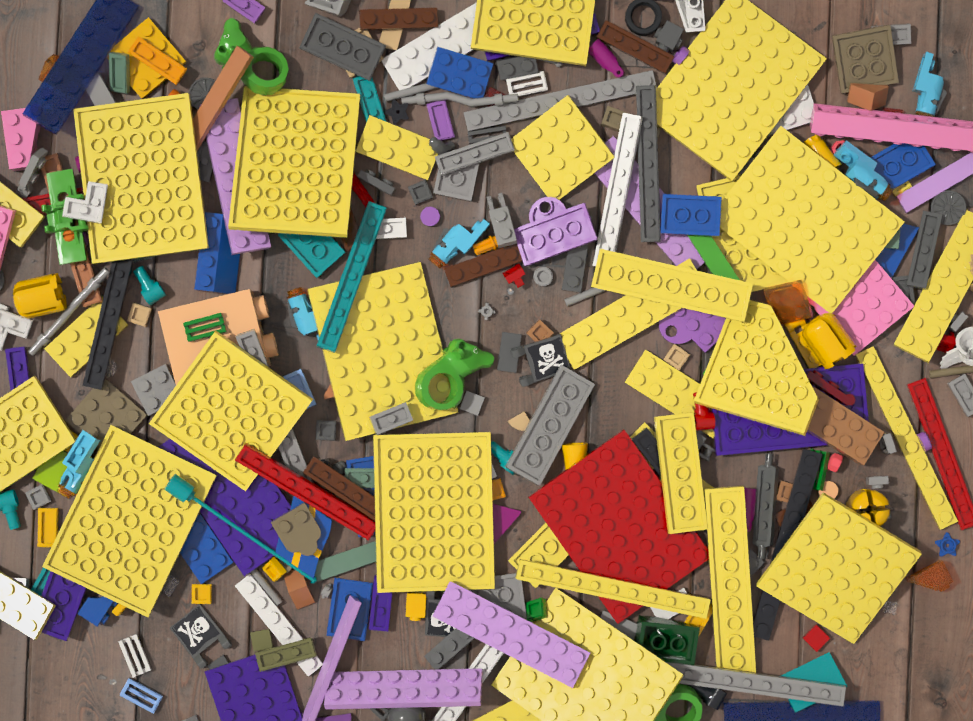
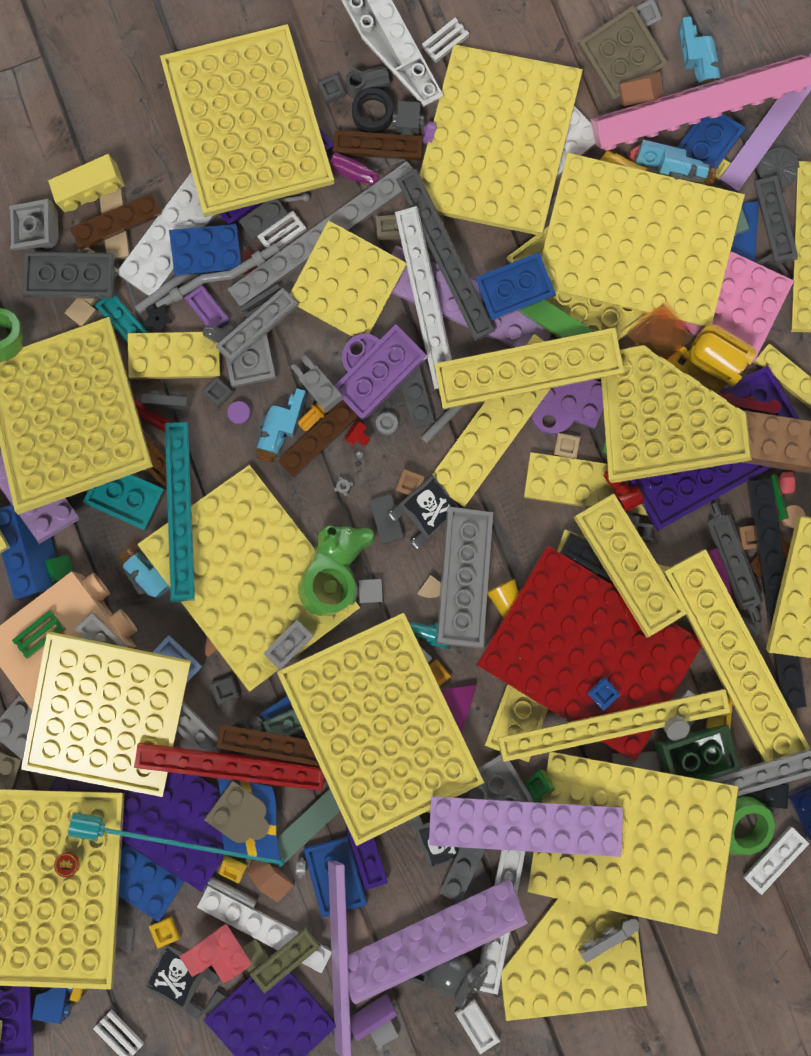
camera: 20 degrees left, 5 degrees down
(152, 510) = (67, 864): none -> tile
(238, 279) = (59, 567): none -> green tile
(240, 627) = (220, 951): none -> coral brick
(339, 79) = (80, 312): none -> tan tile
(392, 228) = (204, 443): white plate -> none
(416, 605) = (406, 840): yellow brick -> none
(615, 561) = (603, 693): none -> blue tile
(659, 612) = (676, 728): none -> light grey tile

